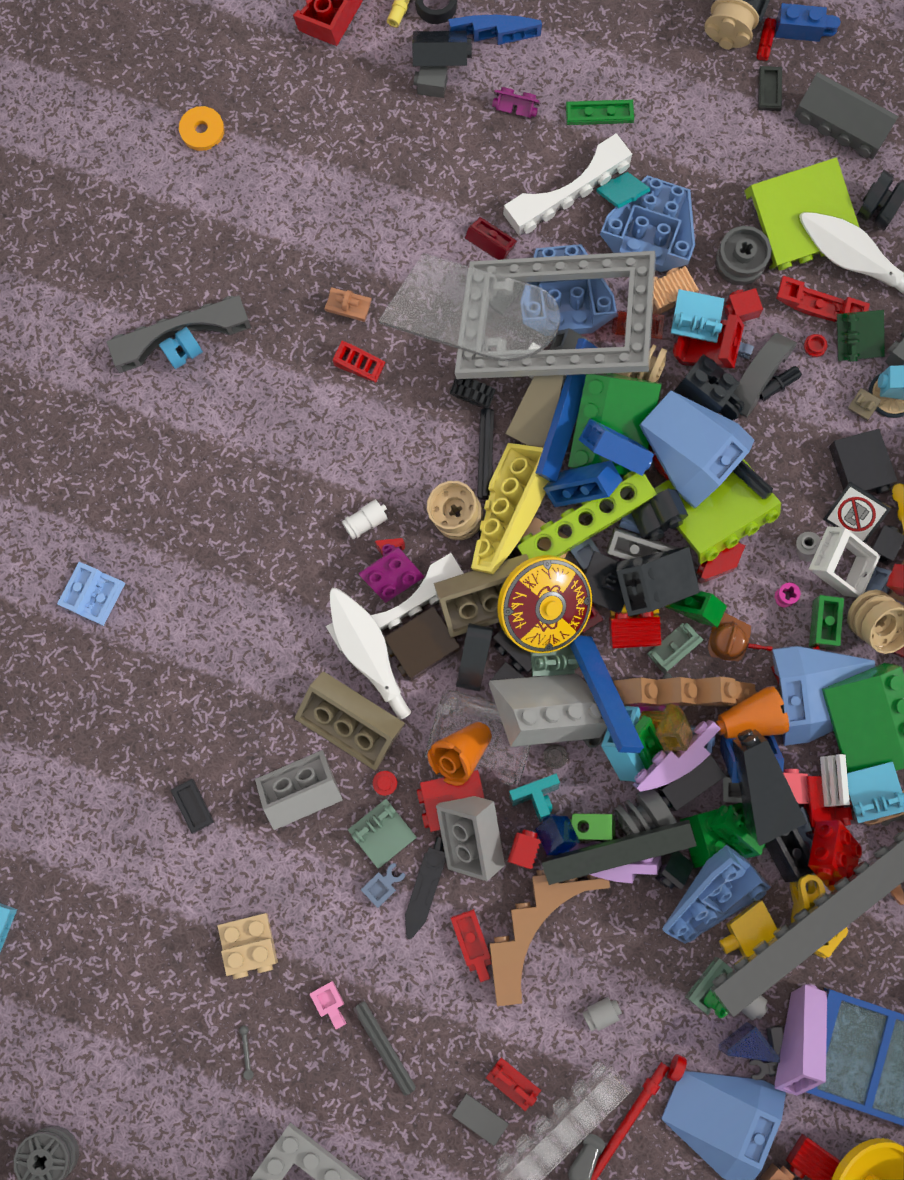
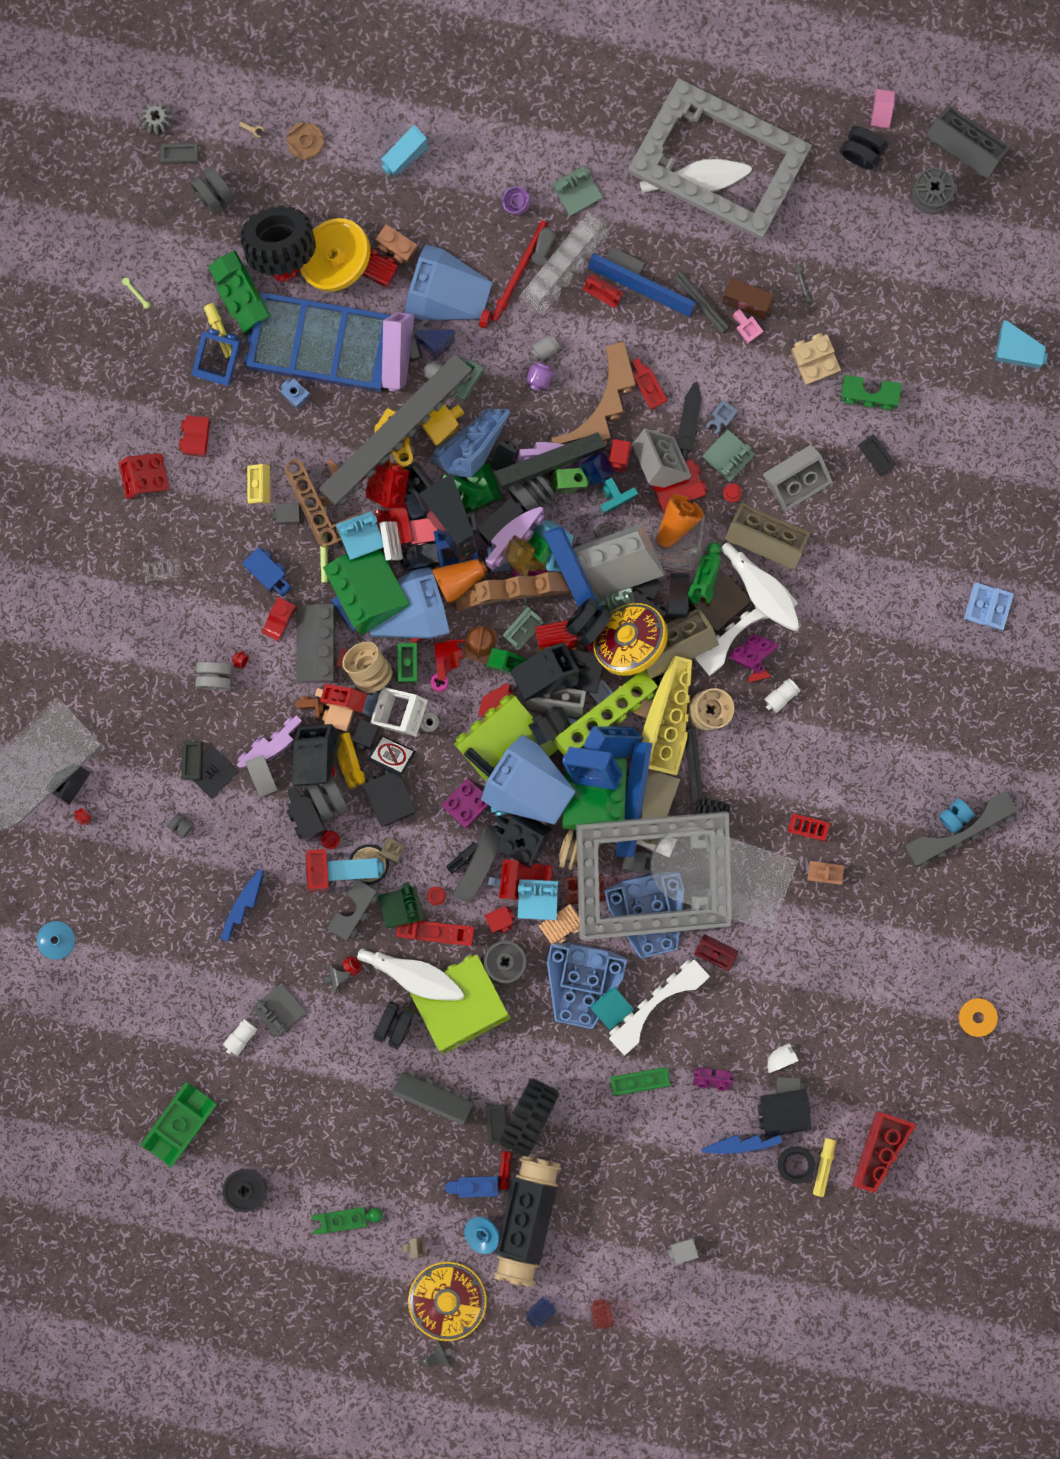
camera: 175 degrees right, 5 degrees up
(205, 893) = (854, 393): none -> green arch
(321, 1040) = (748, 299): none -> reddish brown brick
(433, 112) = (781, 1058): none -> white brick
(435, 678) = (706, 574): none -> green plate
(462, 1084) = (641, 285): none -> blue tile
(596, 634) = (587, 621): none -> black wheel
(613, 976) = (539, 376): none -> medium lavender head
(738, 70) = (529, 1117): none -> black tyre
(771, 446) = (465, 803): none -> magenta hinge
(777, 622) = (447, 657): none -> red arch
(800, 755) = (419, 557): none -> black slope

